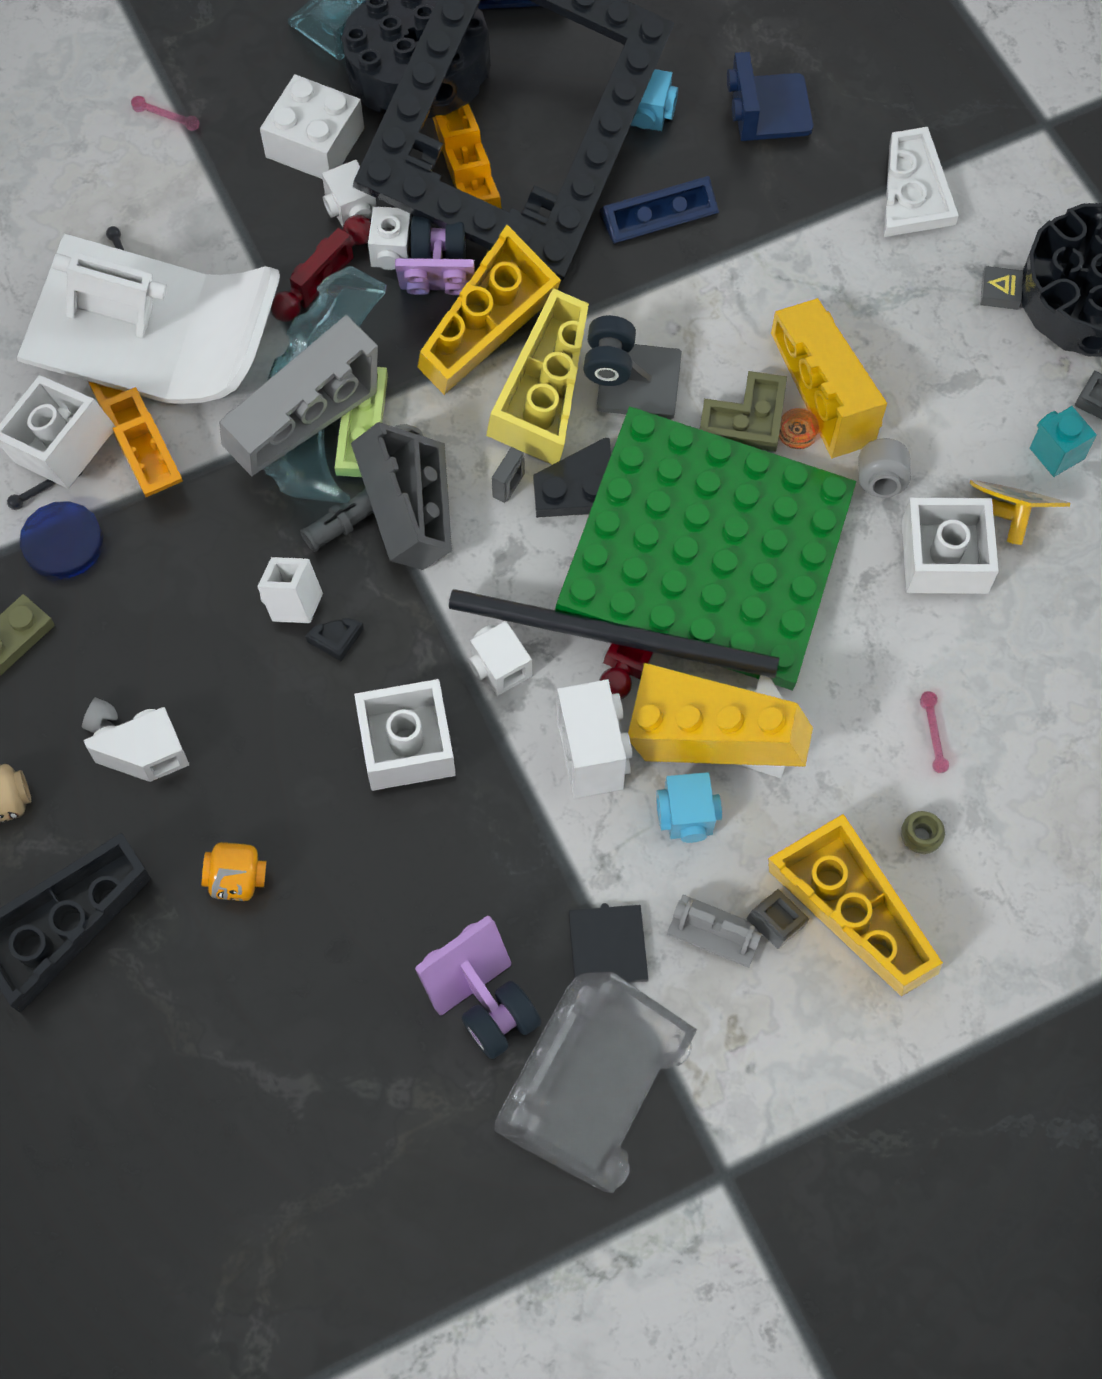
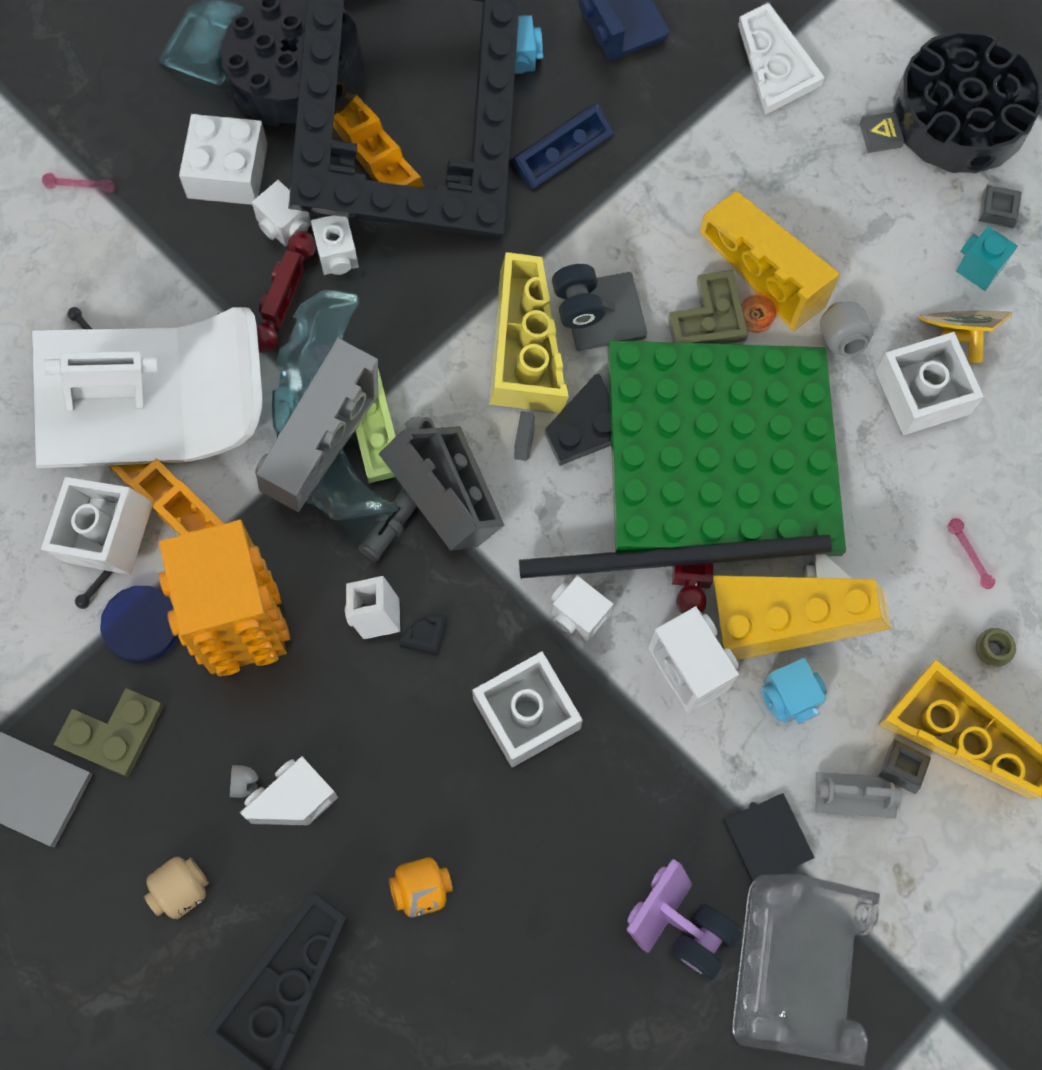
camera: 20 degrees left, 5 degrees up
(141, 528) = (223, 599): none -> light orange brick
(426, 274) = (389, 232): lavender plate -> none
(490, 308) = (455, 279): yellow wedge -> none

